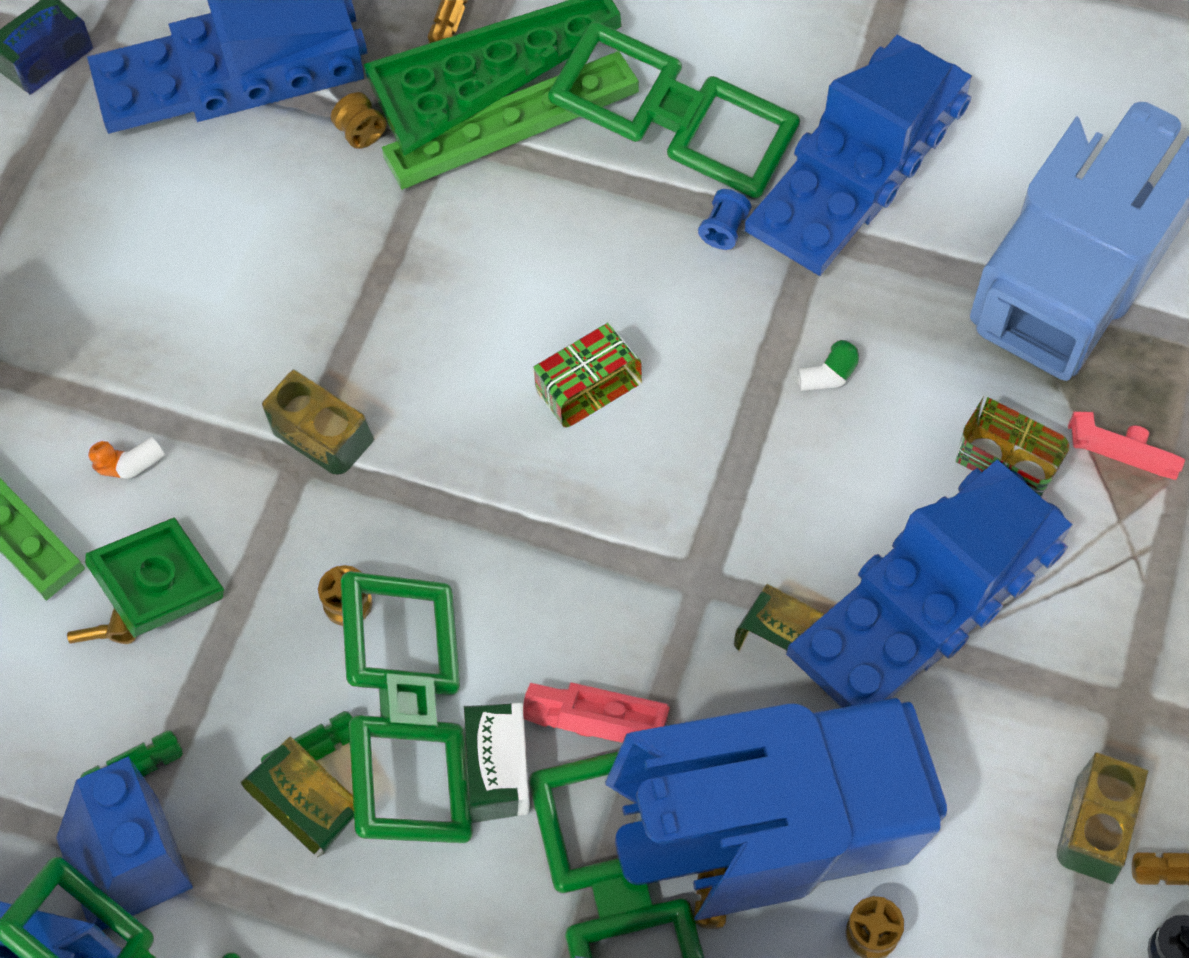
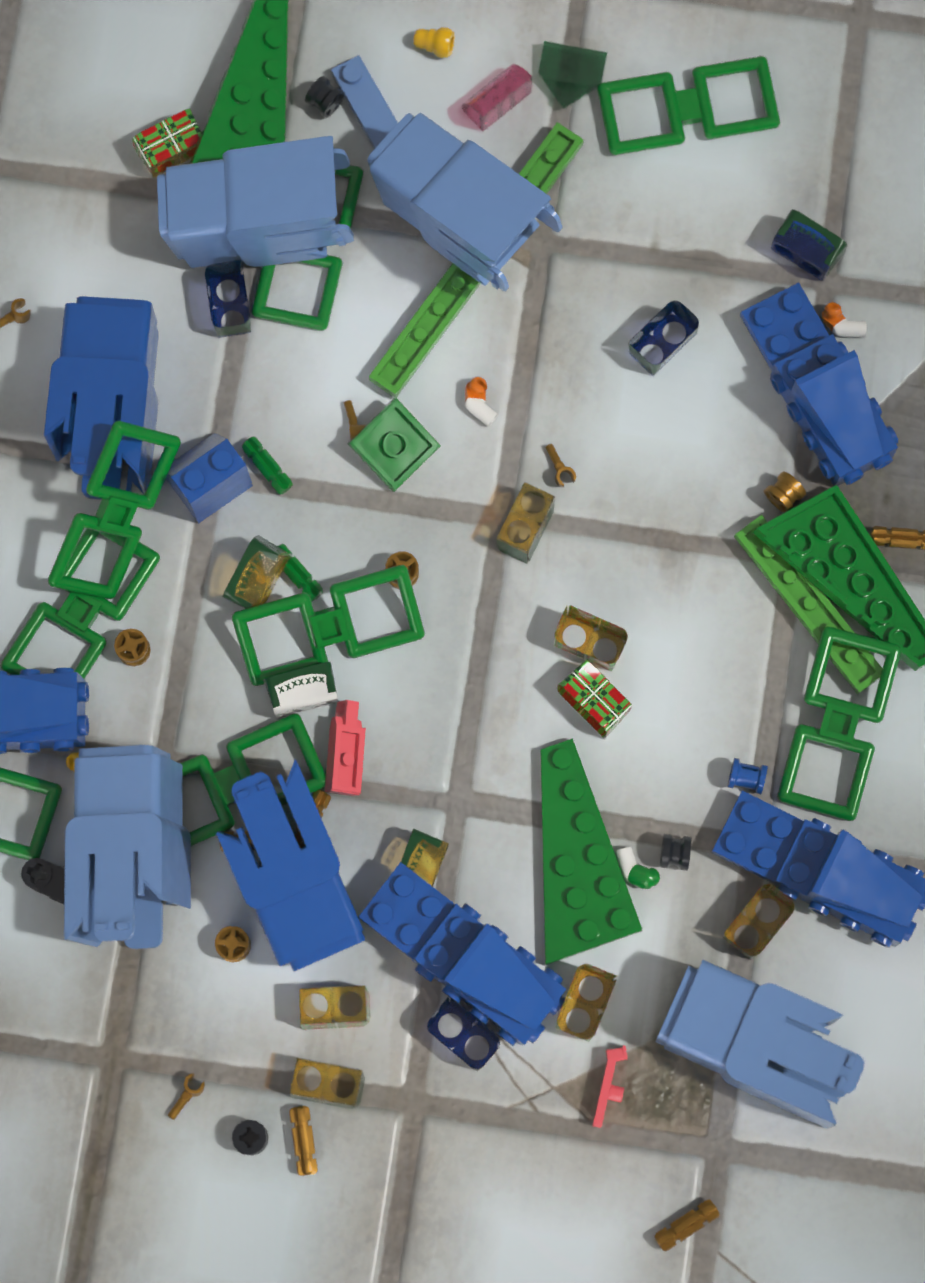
camera: 80 degrees right, 15 degrees up
(102, 187) = (642, 338): none -> clear blue piece
(138, 33) = (839, 325): none -> arm
(261, 377) = (559, 466): none -> pearl gold hand
(471, 375) = (588, 623): none -> clear yellow piece
(814, 314) = (675, 852): none -> black wheel
(818, 436) = (581, 875): none -> green wing
(930, 218) = (786, 908): none -> clear yellow piece
(965, 826) = (332, 997): none -> clear yellow piece
(1071, 583) = (467, 1032): none -> clear blue piece

